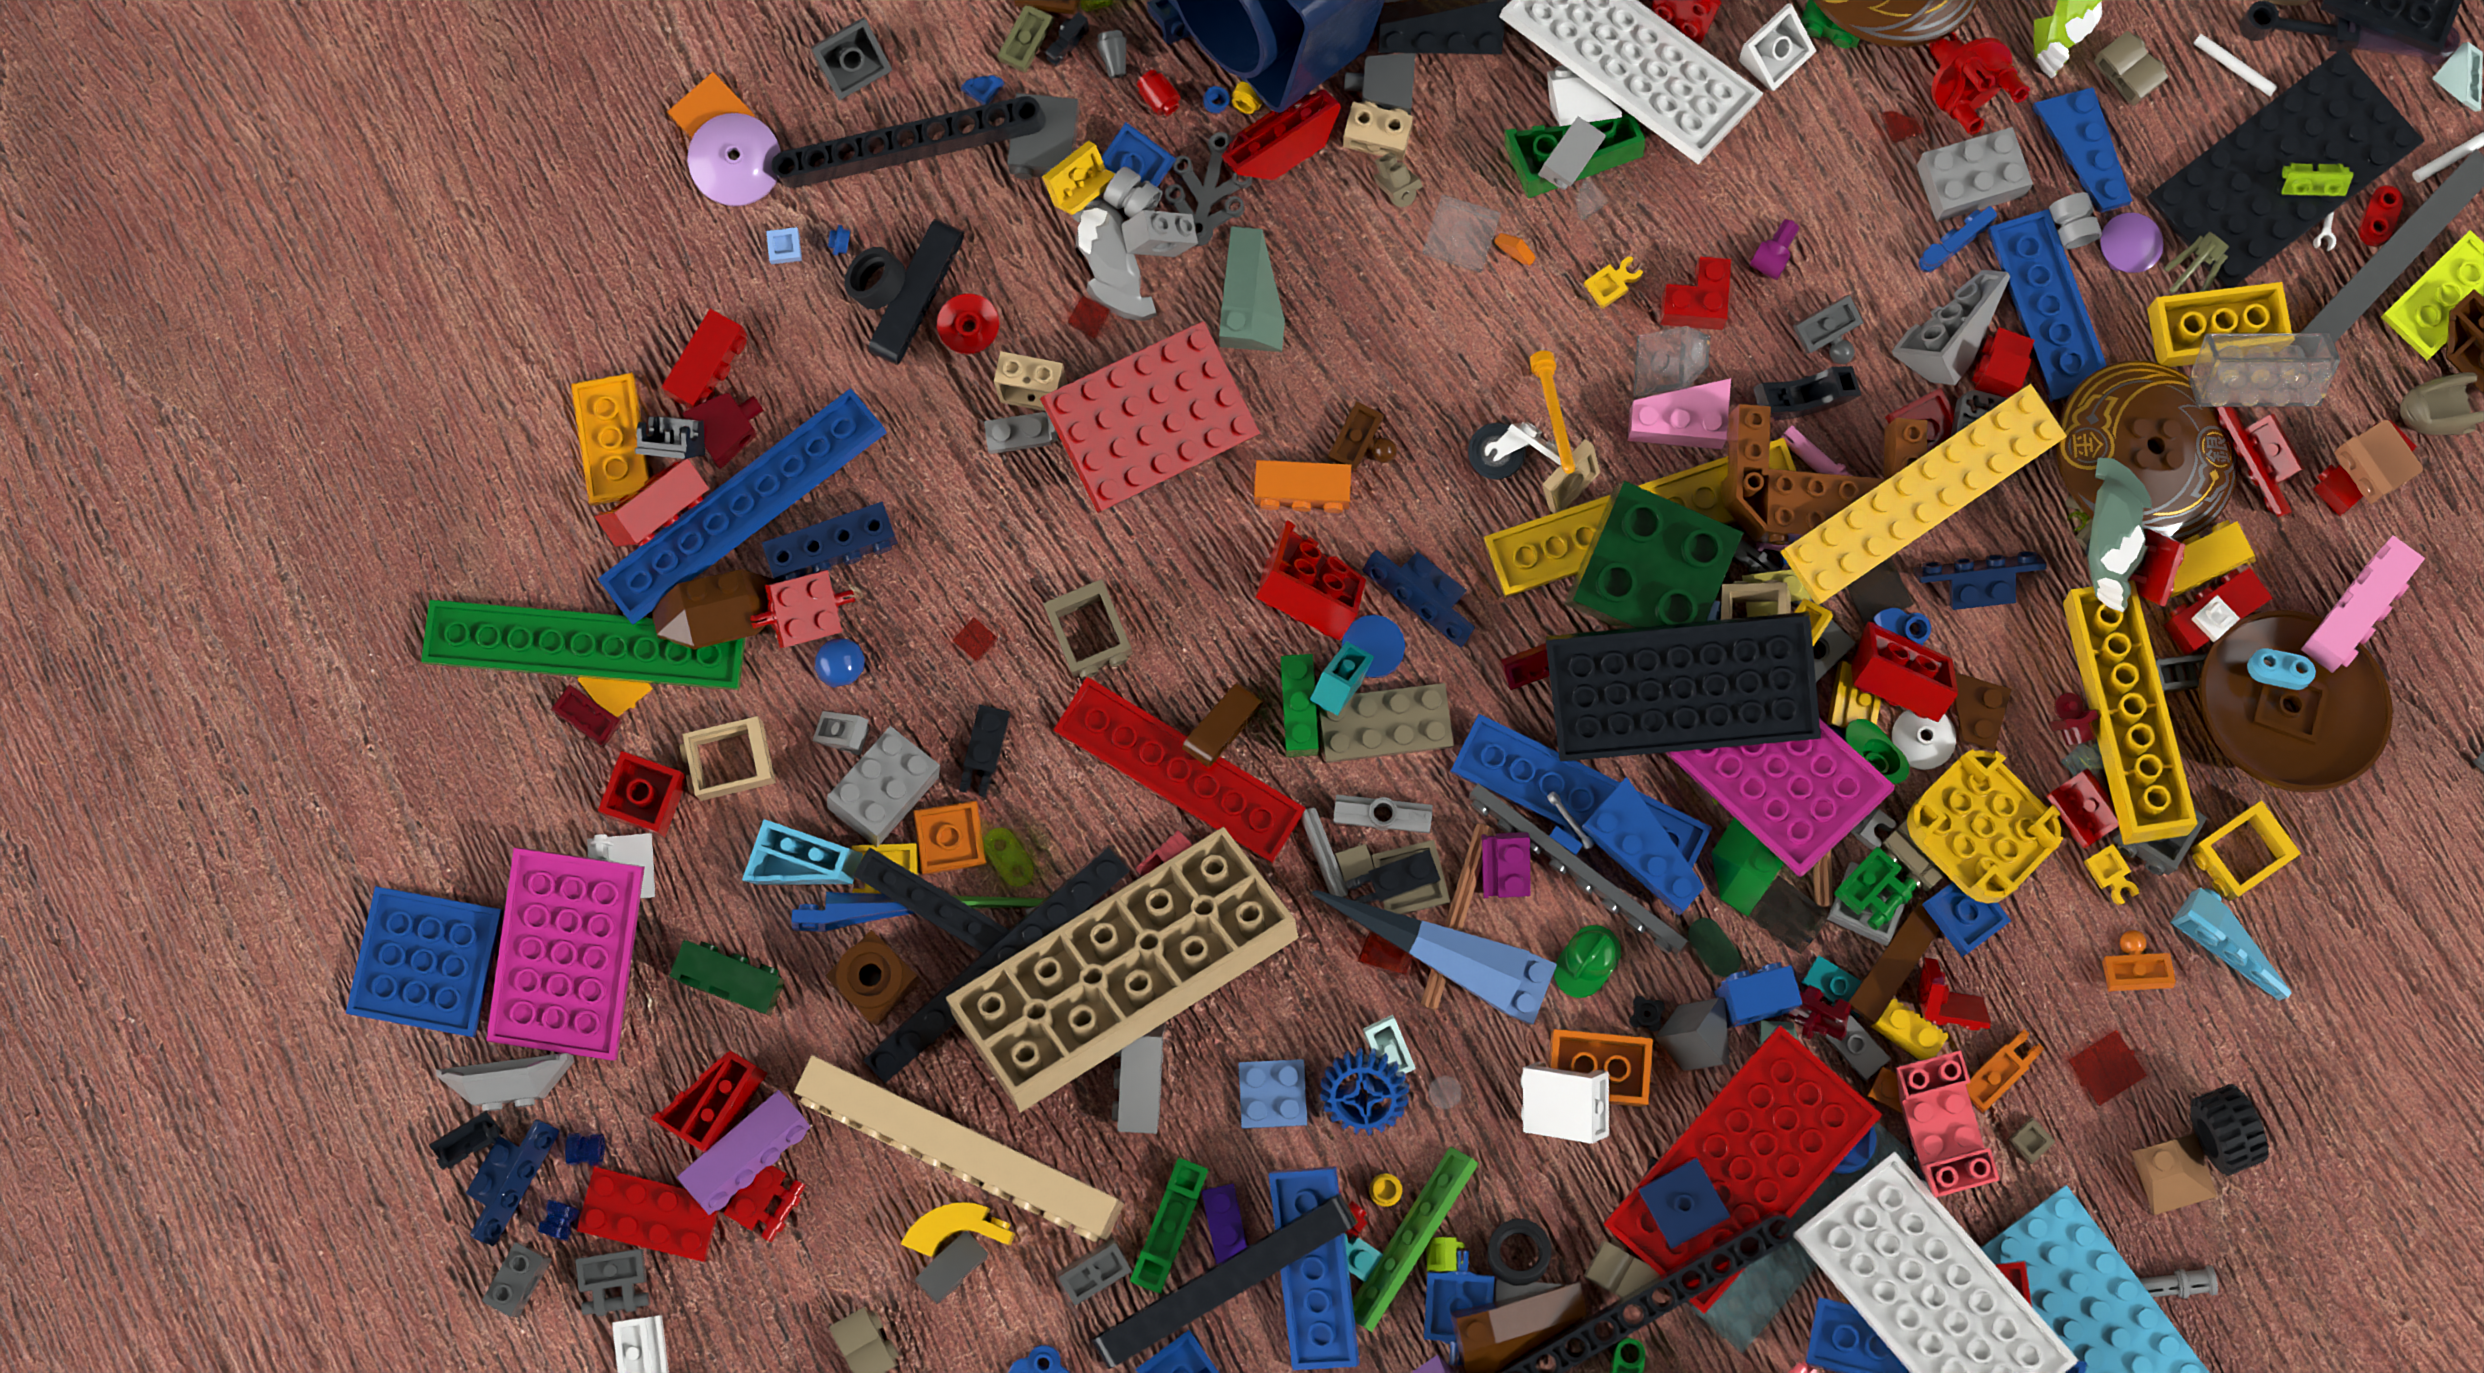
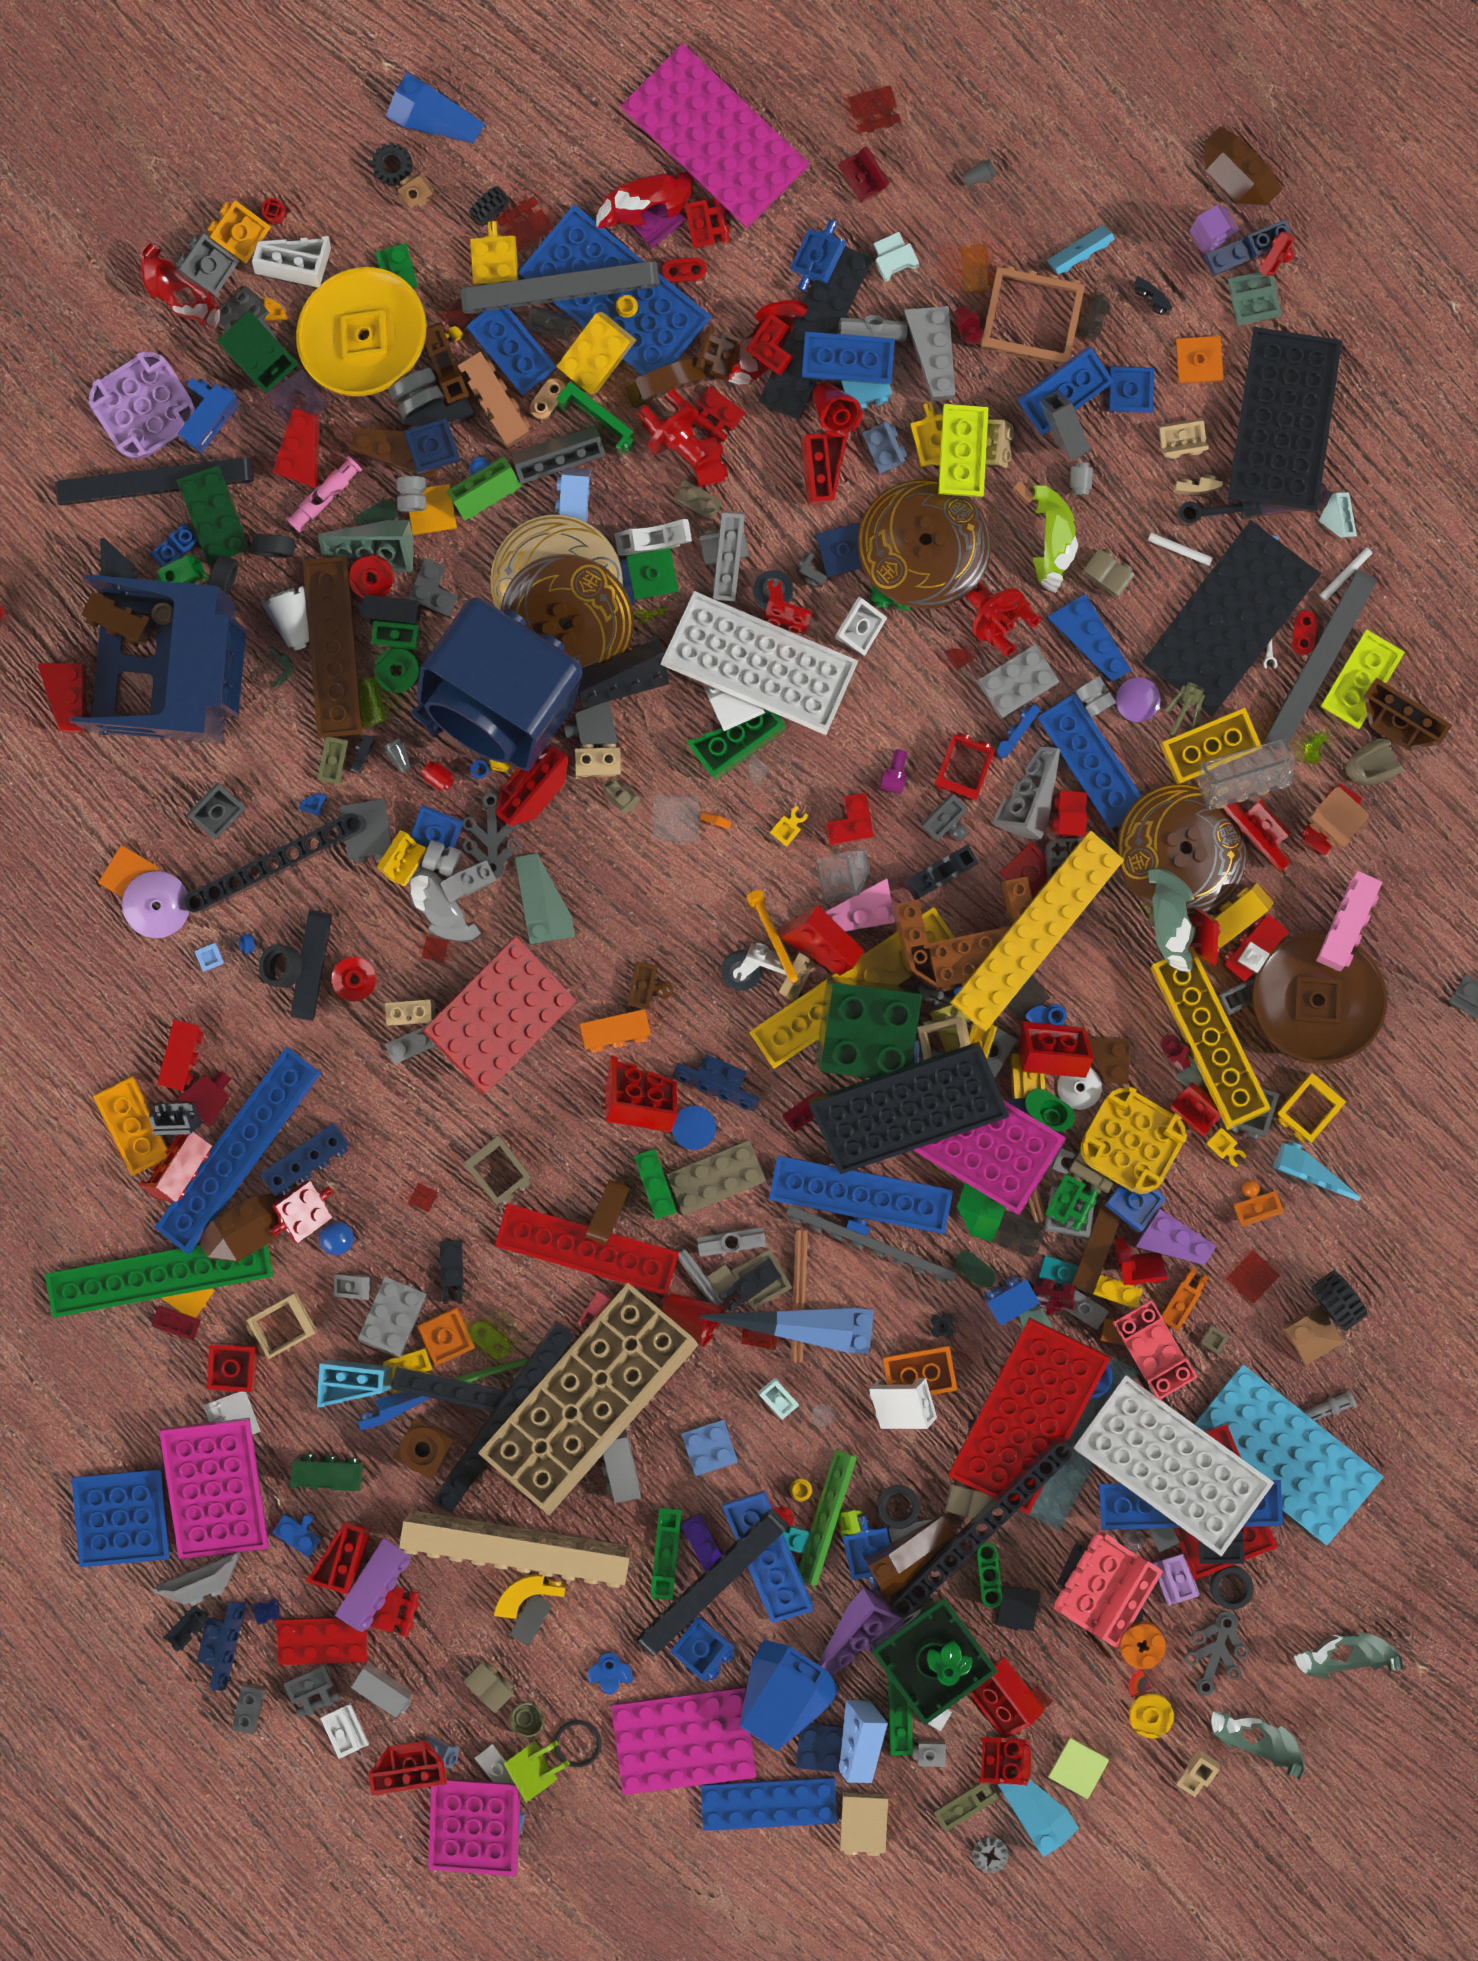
camera: 20 degrees left, 10 degrees up
(558, 1220) = (263, 1662): clear blue wheel -> none
(662, 1054) = (298, 1534): none -> blue plate
(711, 1305) = (382, 1690): none -> light grey brick
(1093, 1271) = (622, 1600): dark grey hinge -> none
(1295, 893) = (686, 1313): none -> red cone
(1340, 1096) = (768, 1438): blue gear -> none
(1342, 678) = (679, 1160): teal brick -> none
(1506, 865) = (822, 1254): magenta plate -> none
(1554, 799) = (844, 1202): light grey hinge -> none
(1572, 154) = (737, 751): light grey hinge -> none
(1587, 961) = (893, 1301): green piece -> none
(1621, 434) = (822, 940): none -> red wedge
(1642, 847) = (906, 1217): blue wedge -> none
(1684, 1202) = (996, 1448): dark blue plate -> none
(1697, 1035) = (977, 1333): dark grey slope -> none
(1811, 454) = (974, 922): bright pink pin -> none
(1862, 295) = (958, 789): none -> red window
(1981, 581) = (1090, 969): dark blue bracket -> none
(2010, 981) = (1174, 1239): none -> medium lavender wedge
(2283, 669) = (1306, 980): medium azure plate -> none
(2329, 179) = (1262, 623): lime hinge -> none
(2358, 367) = (1312, 748): none -> clear neon green arm

